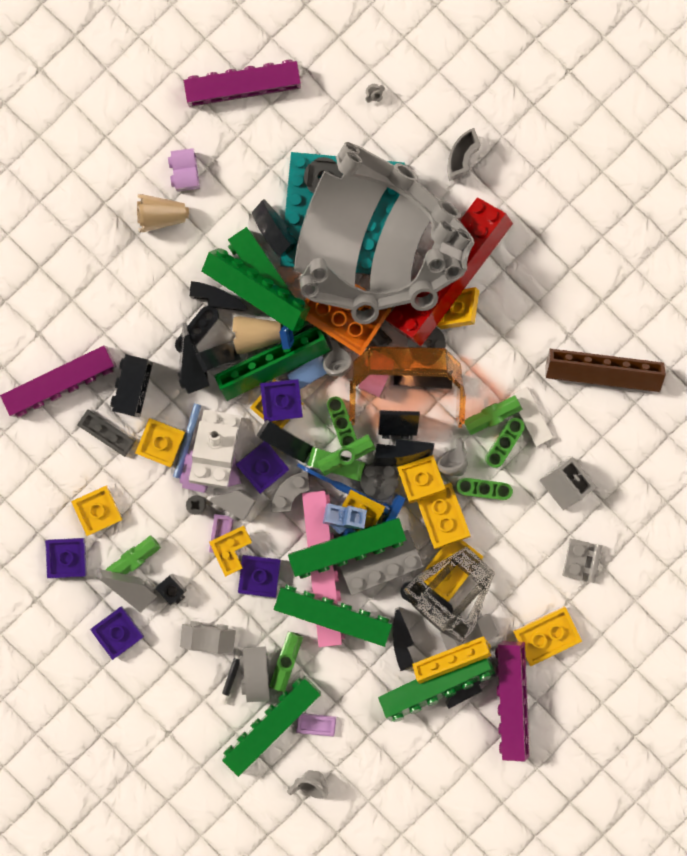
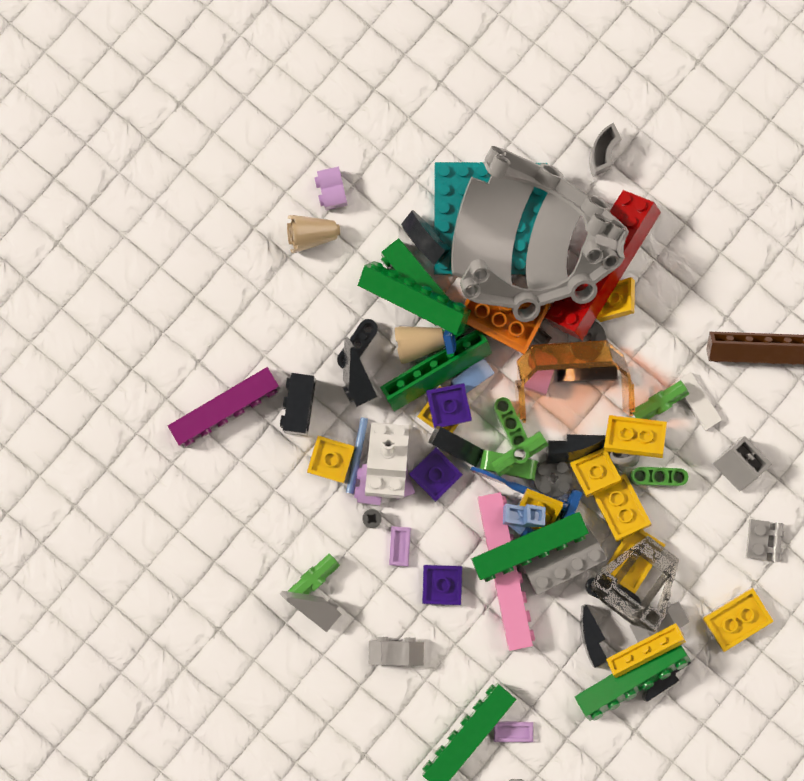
camera: 10 degrees left, 5 degrees down
(66, 557) = (245, 583): dark purple plate -> none
(96, 510) = (272, 533): yellow plate -> none
(106, 433) = (275, 454): dark grey tile -> none
(117, 632) = (303, 655): dark purple plate -> none
(162, 588) = (353, 597): black brick -> none
(216, 297) = (374, 309): black slope -> none
(218, 357) = (383, 367): black slope -> none
(225, 547) = (406, 558): yellow plate -> none
(231, 677) = (423, 689): black bar -> none
(236, 503) = (412, 511): light grey slope -> none
(242, 83) = (381, 100): magenta brick -> none
(255, 674) = (448, 684): light grey brick -> none
(282, 673) = (475, 681): bright green piece -> none
(289, 491) = (464, 496): light grey brick -> none
(316, 168) = (462, 175): dark grey plate -> none
(333, 616) = (522, 617): green brick -> none
(337, 361) = (501, 362): light grey hat -> none
(374, 92) = (511, 98): light grey plate -> none
(398, 423) = (567, 418): black slope -> none
(463, 447) = (635, 436): none -> yellow plate
(511, 436) = (681, 422): bright green beam -> none
(513, 701) = (711, 688): magenta brick -> none

